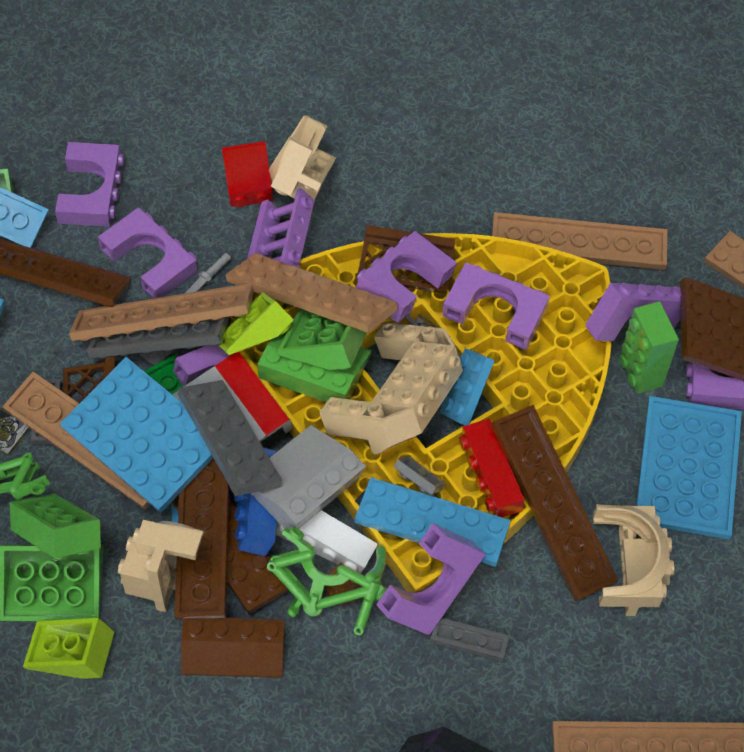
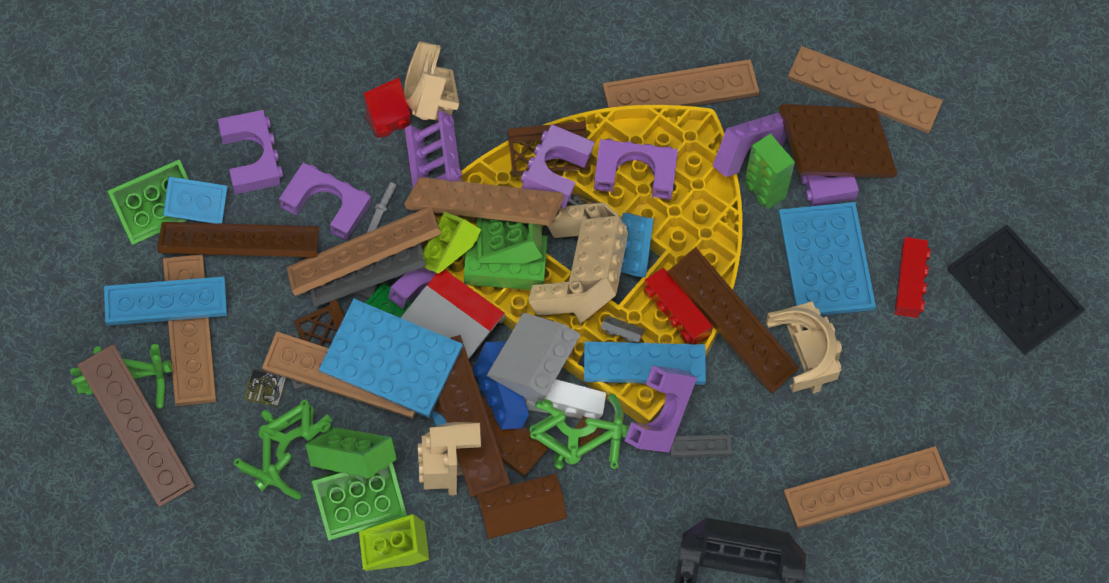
camera: 20 degrees left, 5 degrees up
(229, 438) = (466, 341): dark grey plate -> none

